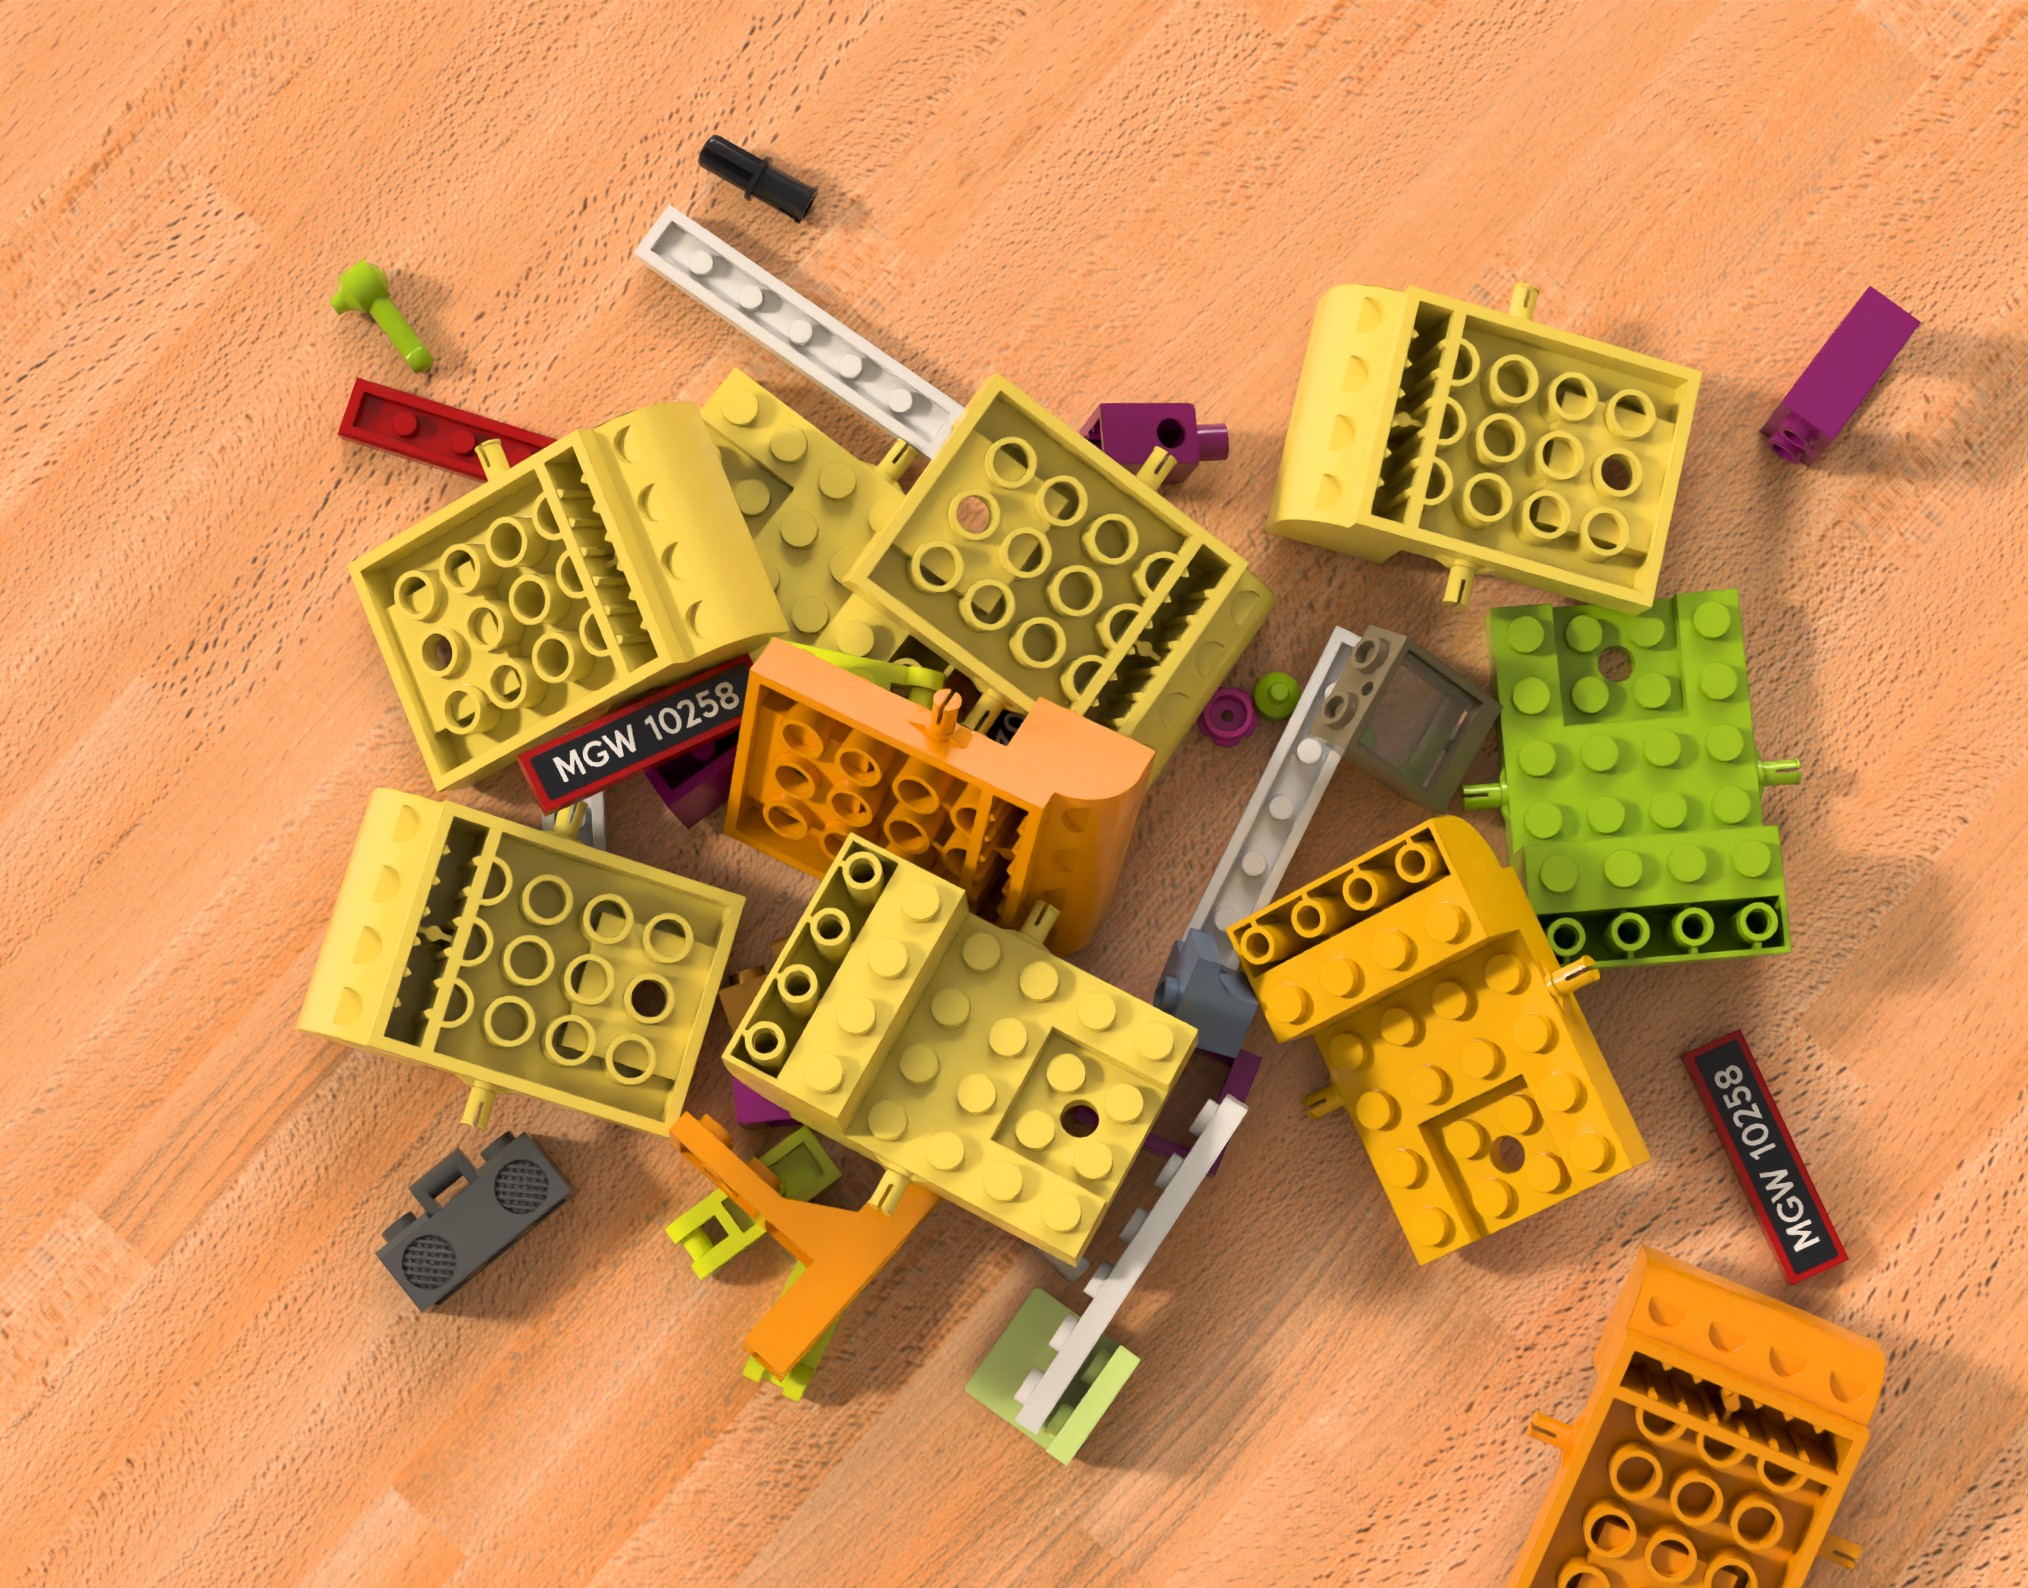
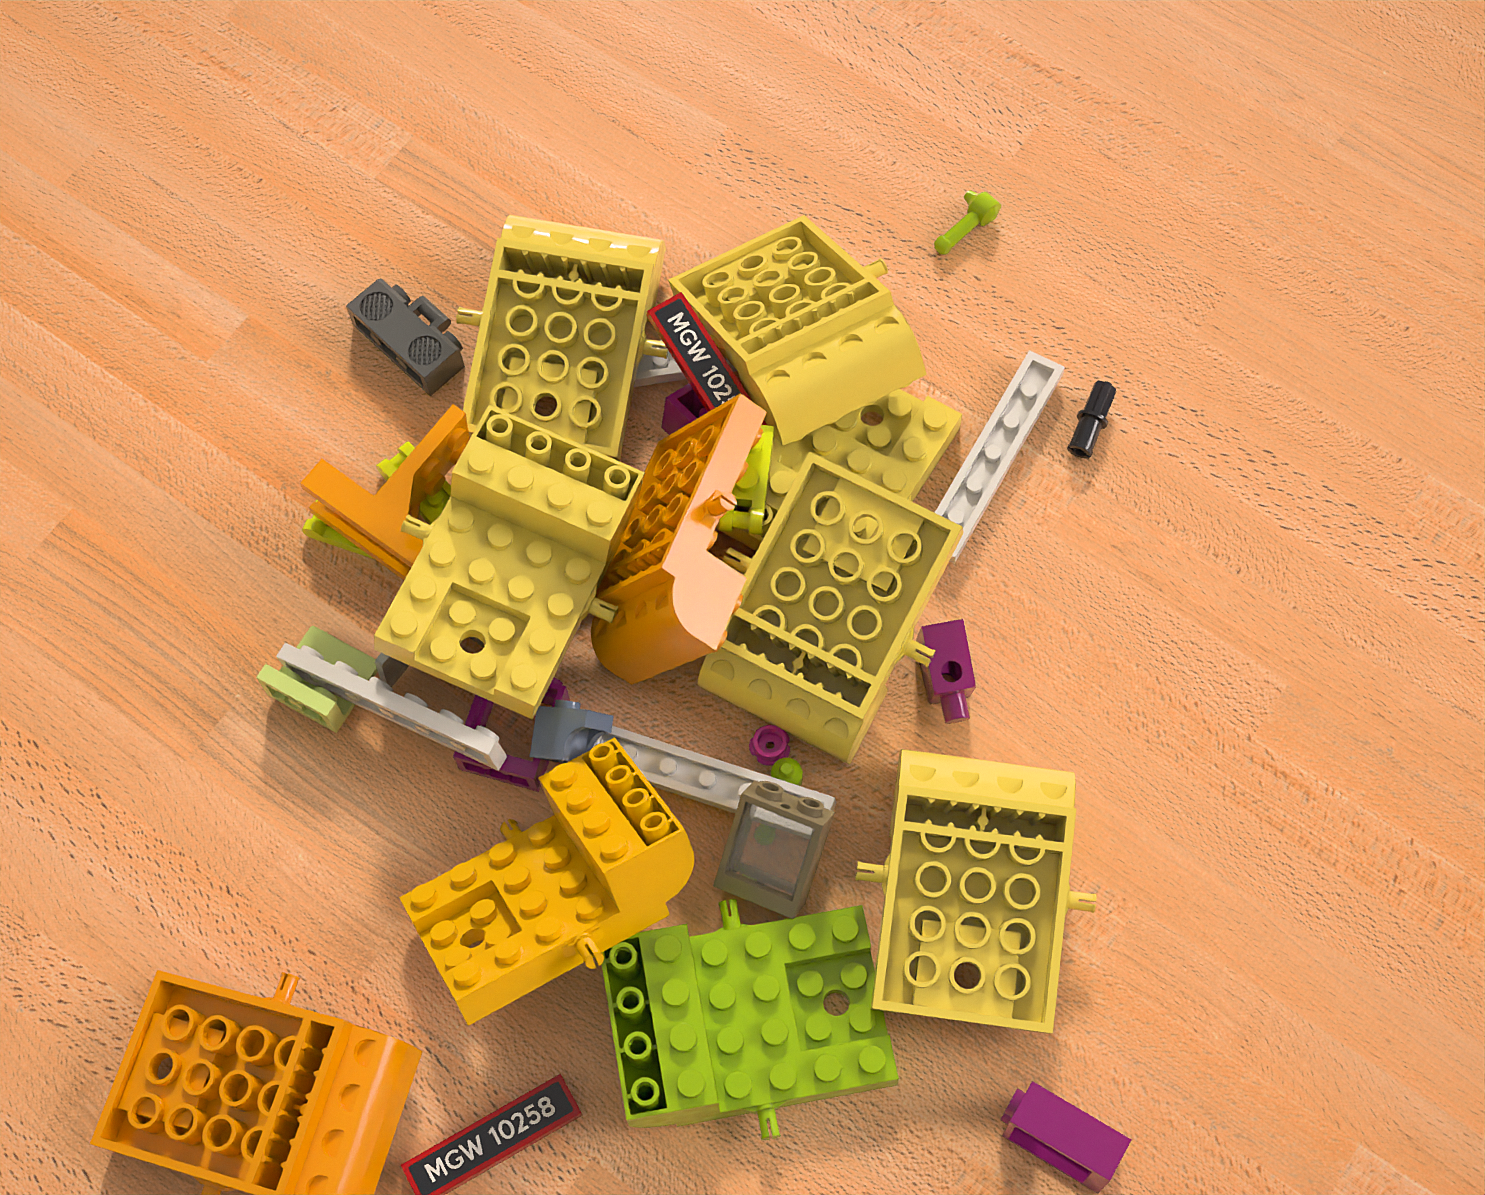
camera: 85 degrees right, 15 degrees down
(430, 431) = (899, 251): red tile -> none

